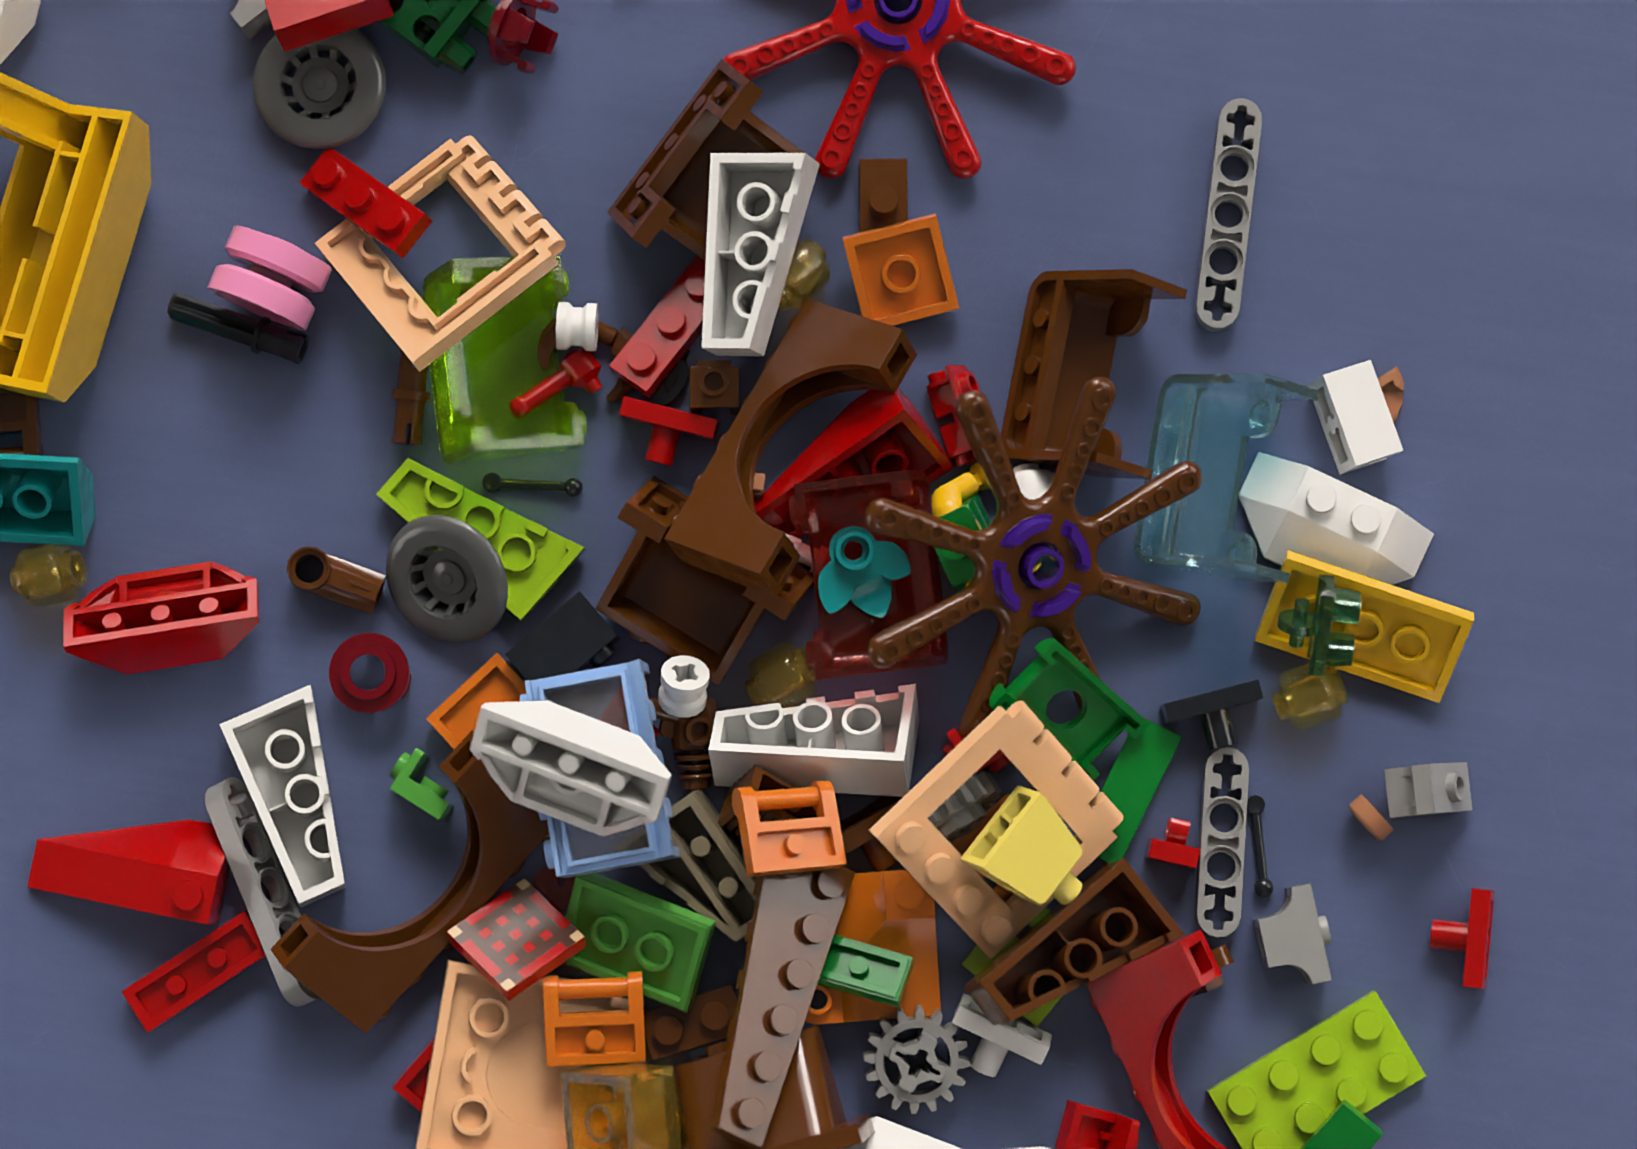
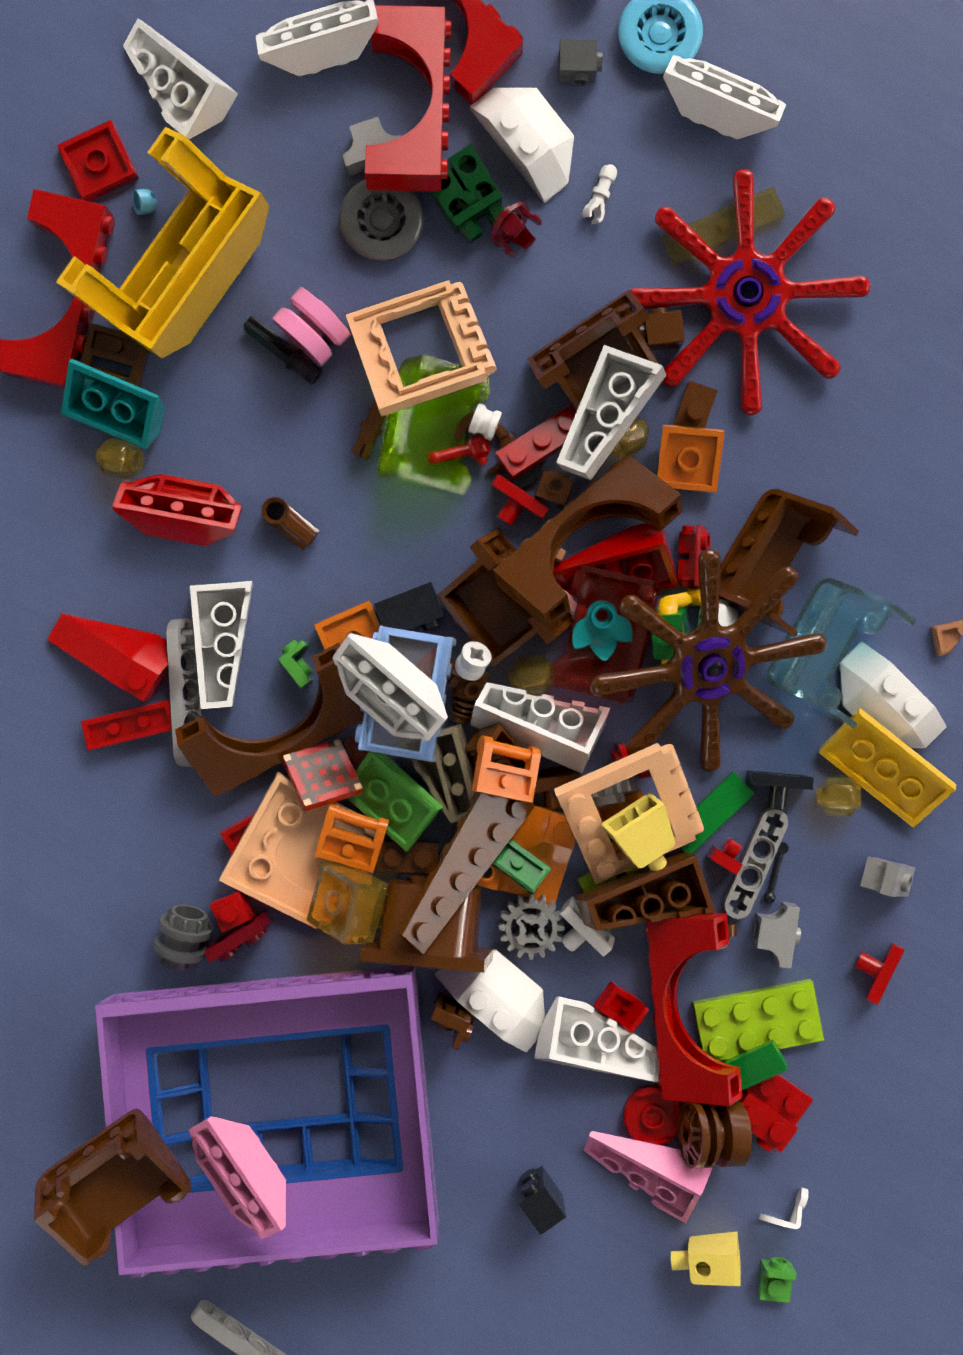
camera: 20 degrees right, 5 degrees up
(366, 202) = (384, 300): red plate -> none
(392, 688) = (306, 590): dark red piece -> none
(458, 571) = (363, 544): dark grey wheel -> none
(493, 482) = (402, 498): black hinge -> none
(529, 552) = (388, 534): lime wing -> none
(792, 99) = (663, 329): none -> reddish brown brick
(1101, 713) = (713, 764): green piece -> none
(1228, 191) = (907, 482): light grey beam -> none
(1323, 646) = (860, 771): clear green hips -> none
(1355, 417) = (927, 642): white hinge -> none
(1370, 818) = (847, 880): nougat tile -> none

